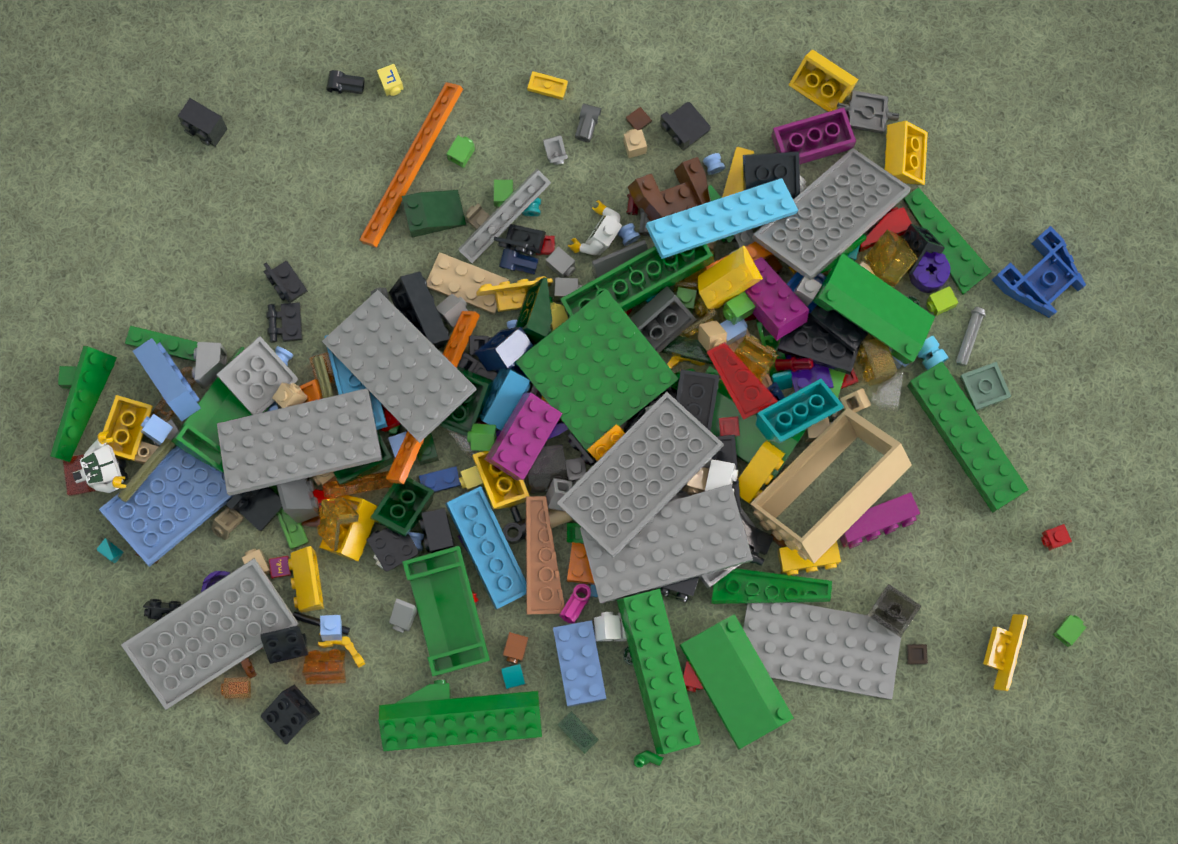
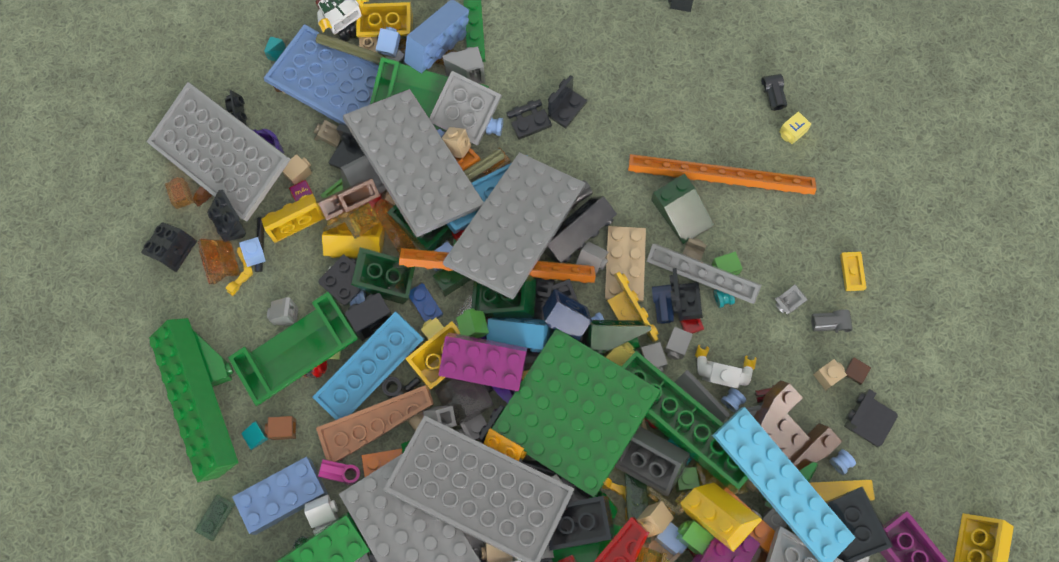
camera: 75 degrees right, 5 degrees down
(316, 515) = (347, 199): none -> reddish brown slope
(461, 151) = (752, 213): bright green brick -> none

